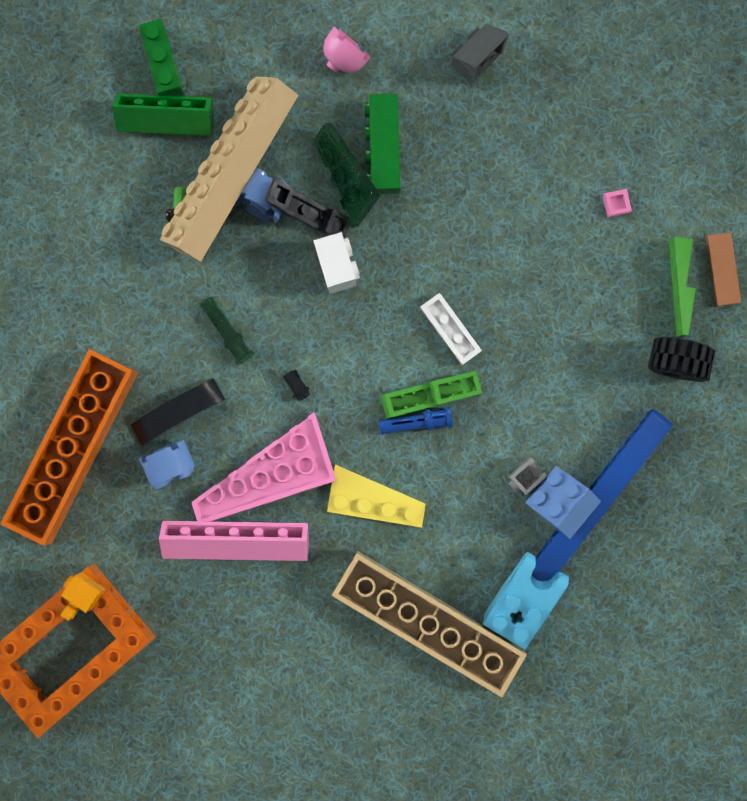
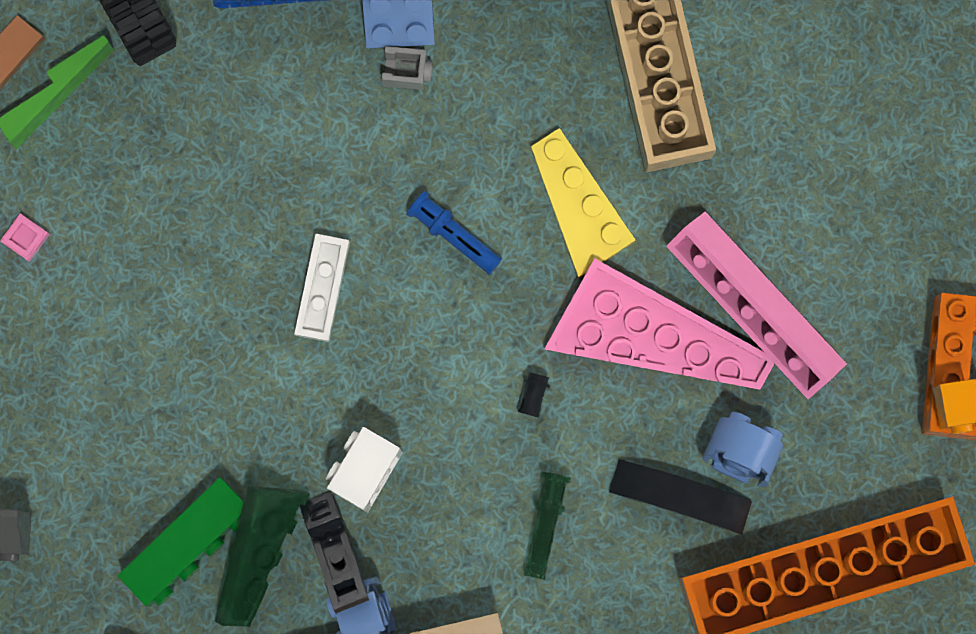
camera: 140 degrees left, 5 degrees down
(431, 394) = (411, 246): bright green slope -> none

